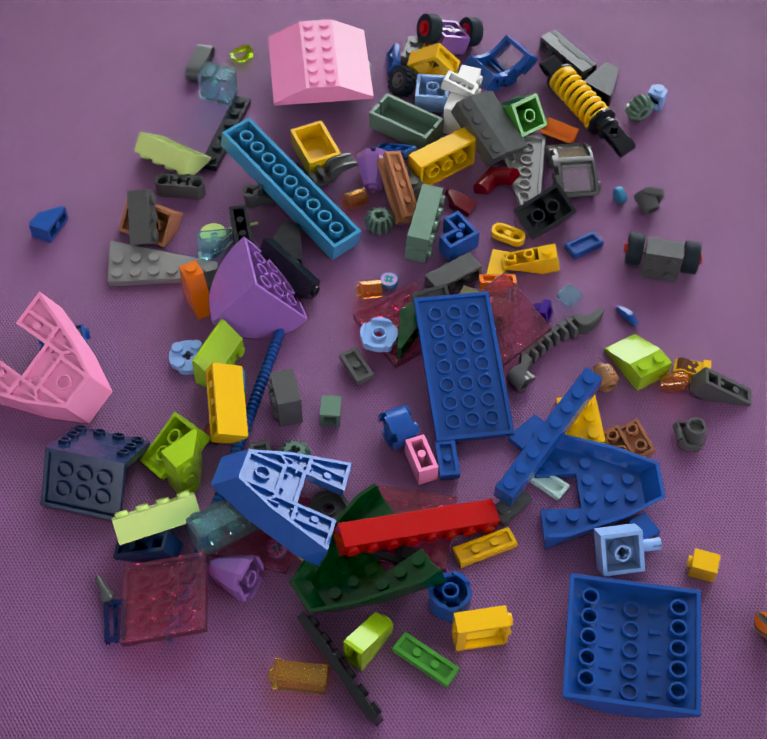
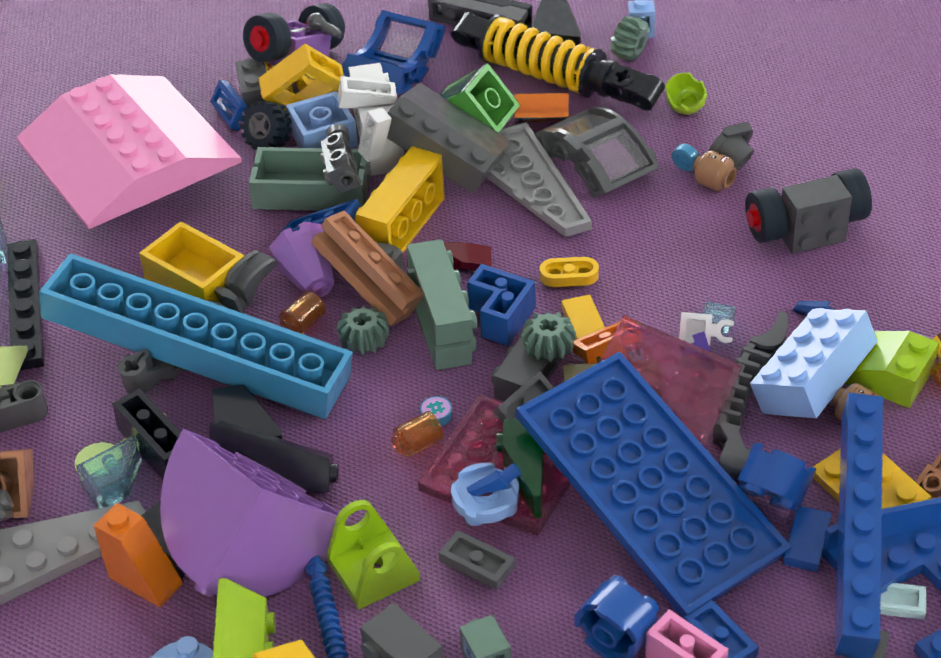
camera: 25 degrees left, 10 degrees down
(306, 333) = (356, 550): none -> lime hose
(384, 331) = (495, 481): none -> blue bar
(420, 119) = (339, 159): none -> dark grey brick
(446, 112) = (374, 134): none -> white piece
(464, 266) = (548, 336): none -> sand green gear
(465, 29) = (317, 22): none -> dark grey piece
(493, 177) = (494, 200): dark red brick -> none
(528, 394) = (776, 476): none -> blue brick
(533, 260) = (635, 289): yellow slope -> none
(545, 211) = (606, 215): black slope -> none
(555, 296) = (695, 323): none -> white plate
(583, 245) = (684, 243): blue tile -> none
(597, 342) = (814, 362): none -> light blue brick
(629, 210) = (714, 170): none -> medium nougat head
(646, 155) = (685, 93): none -> lime hair

